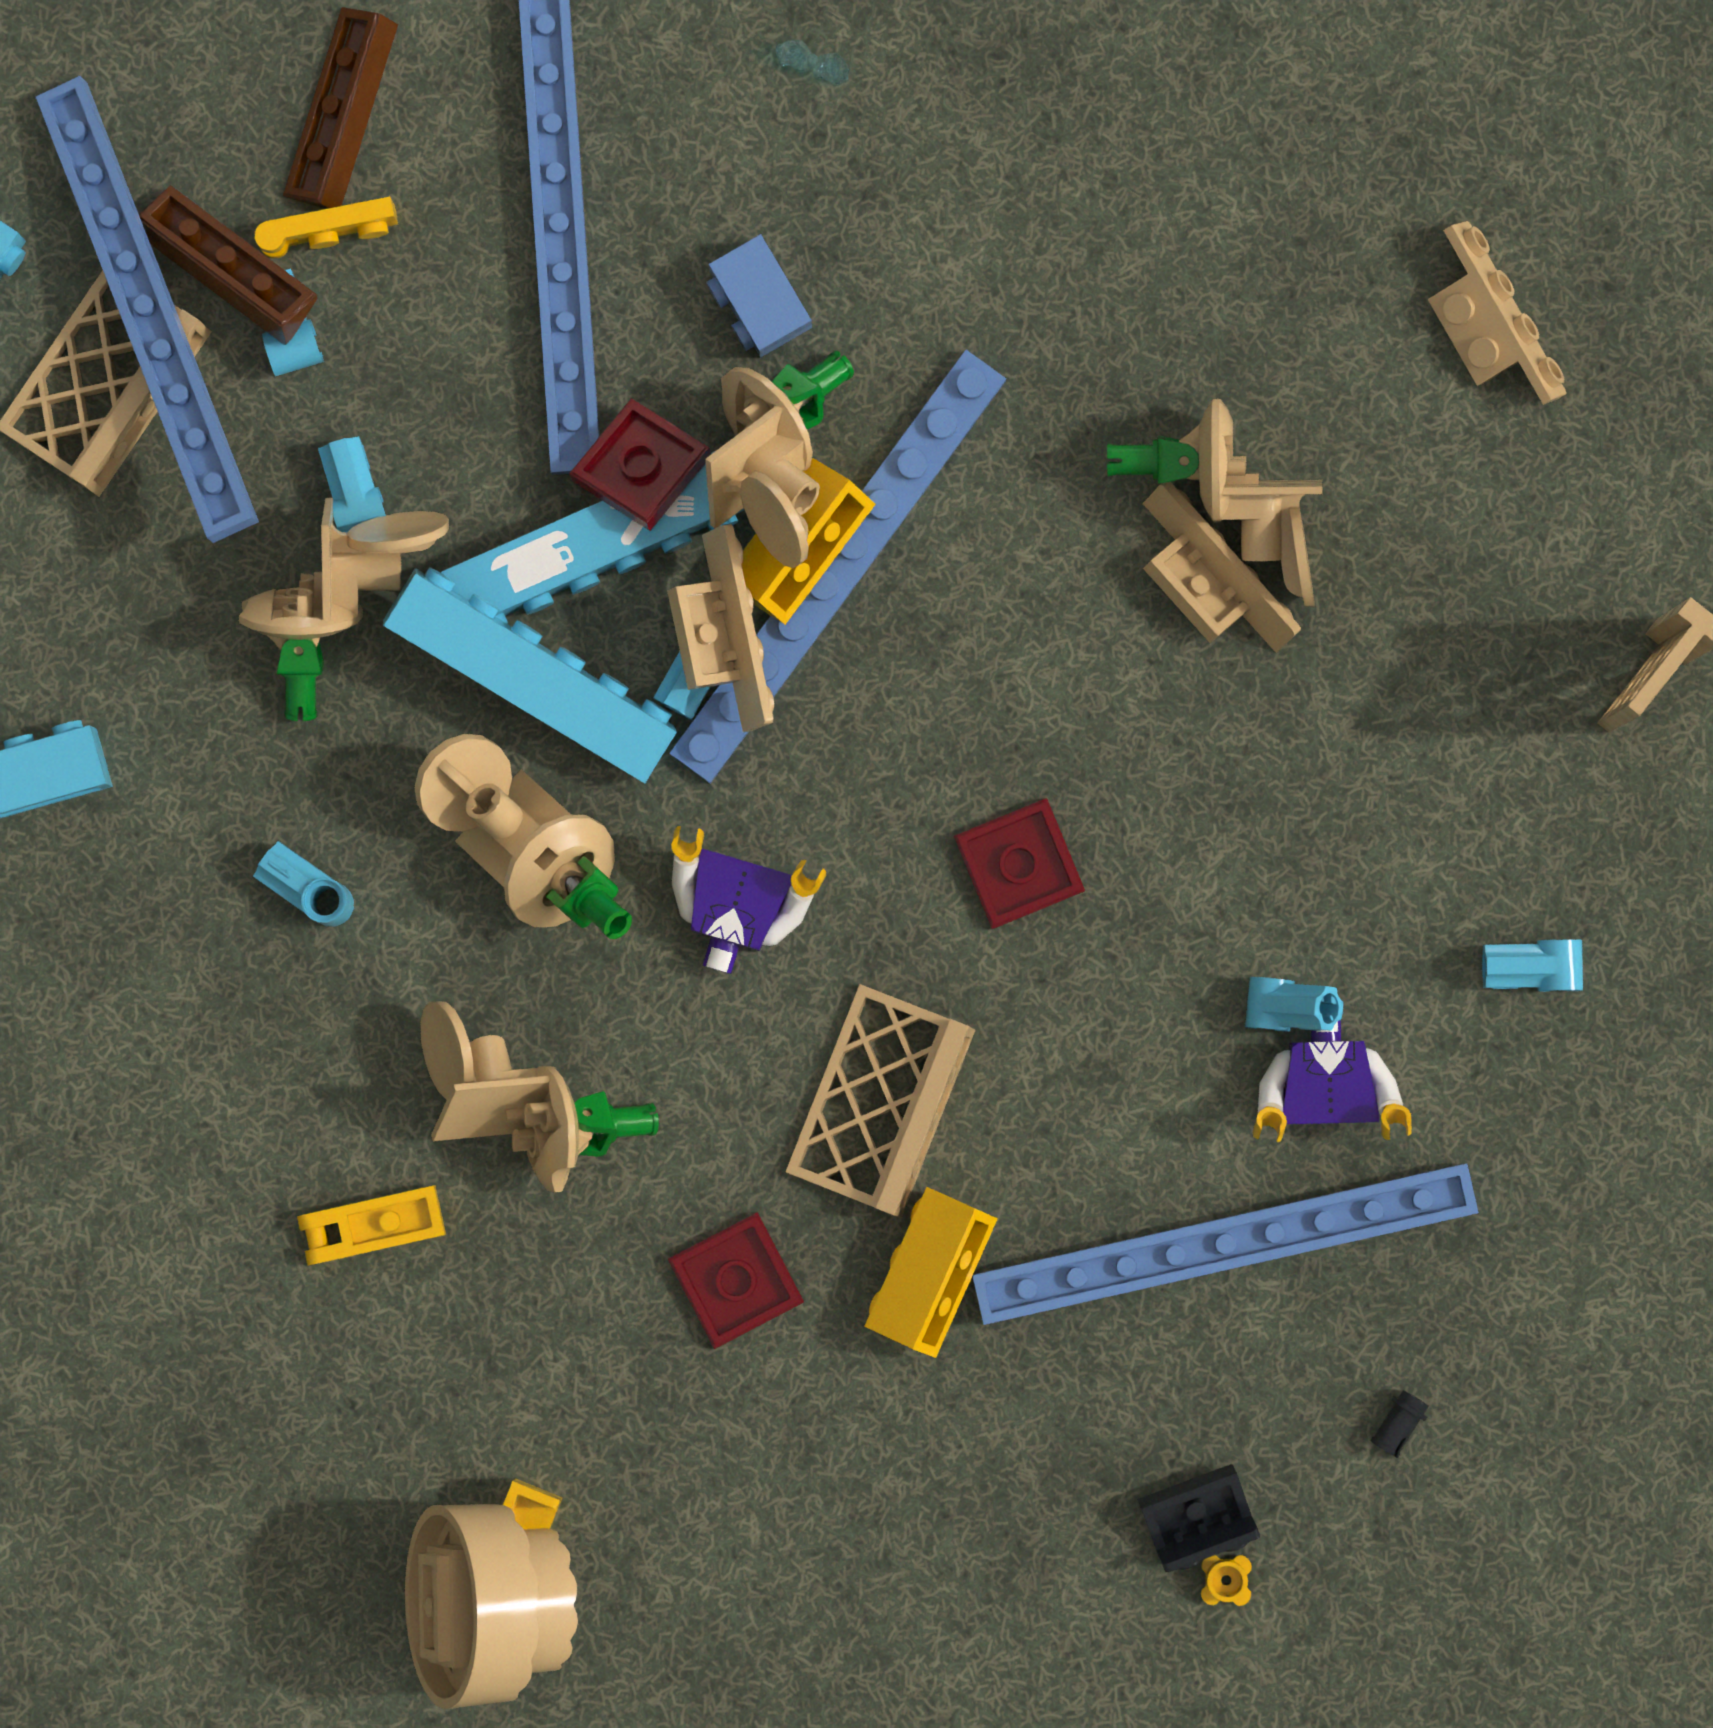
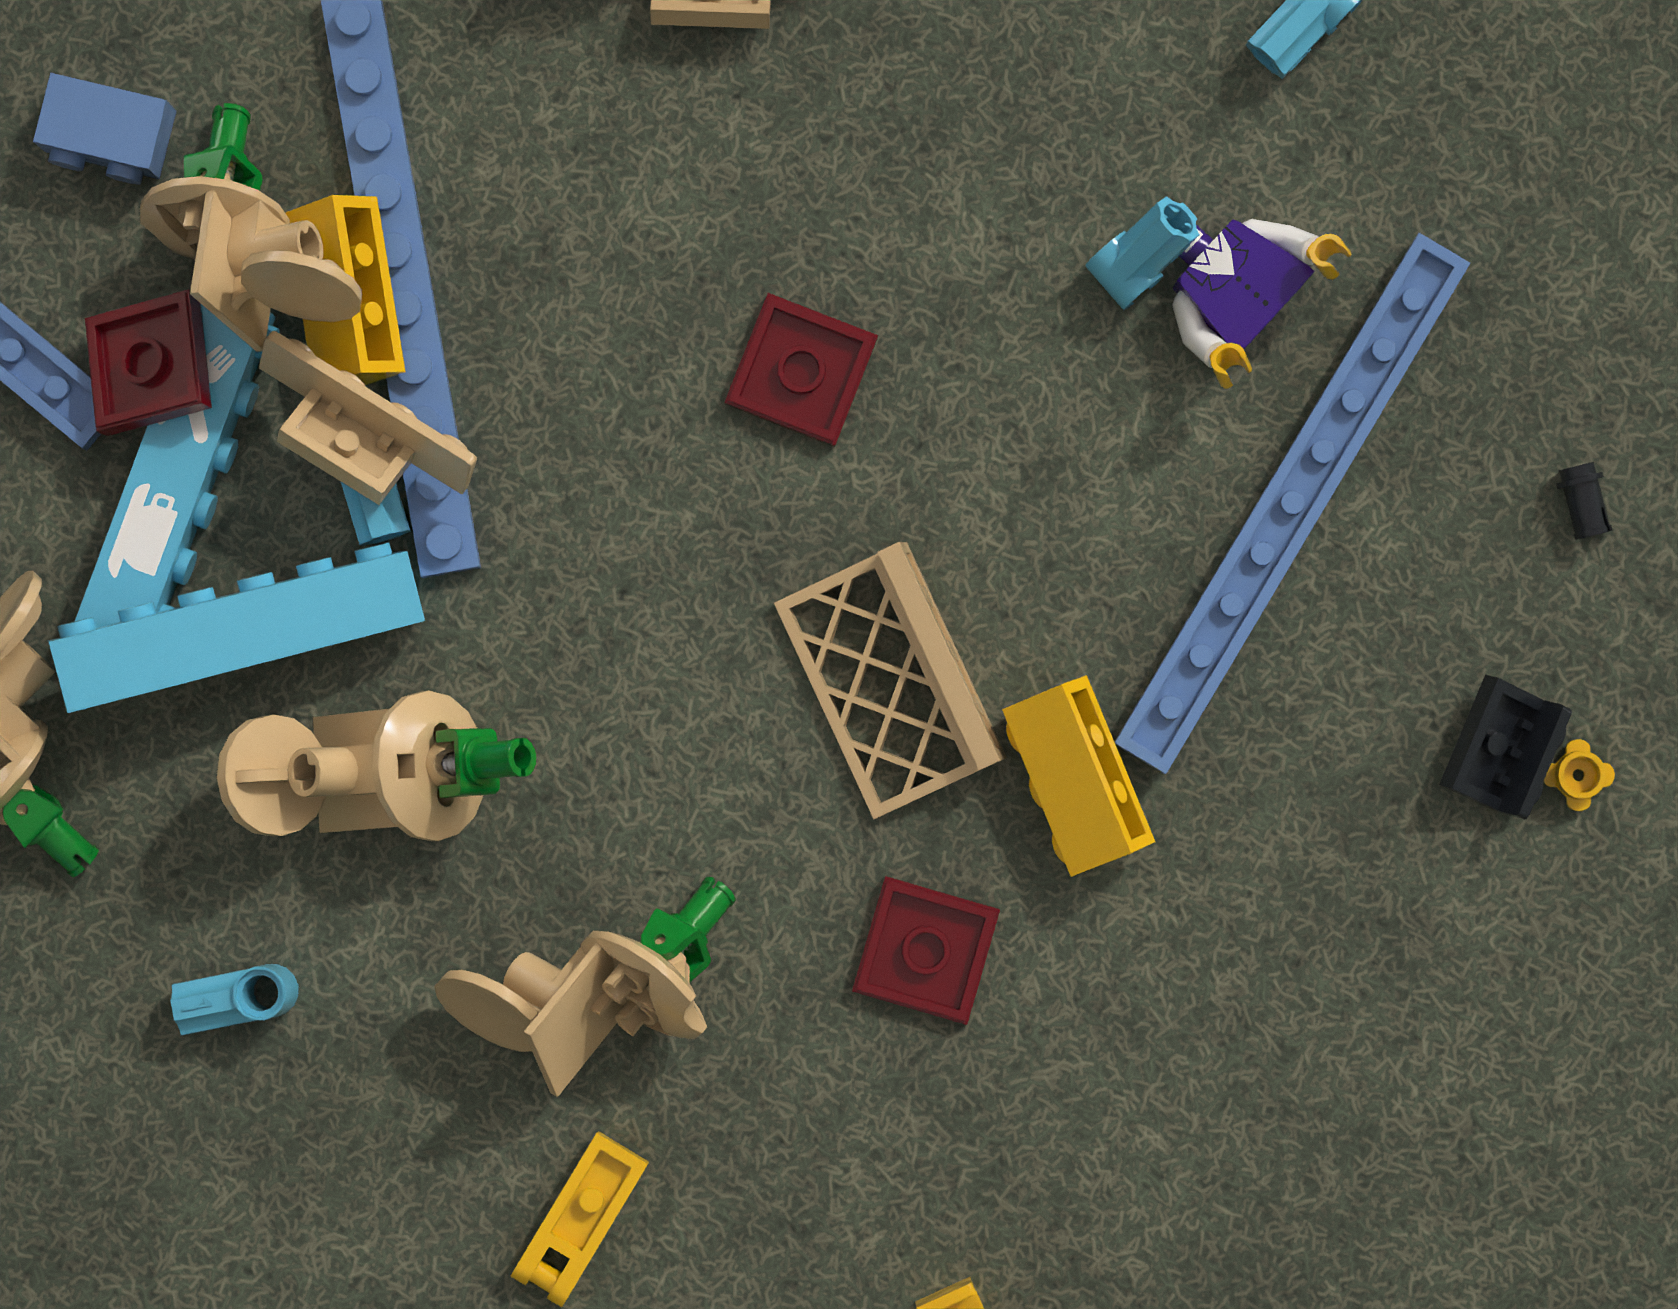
camera: 45 degrees left, 0 degrees up
(736, 900) = (601, 638): torso -> none

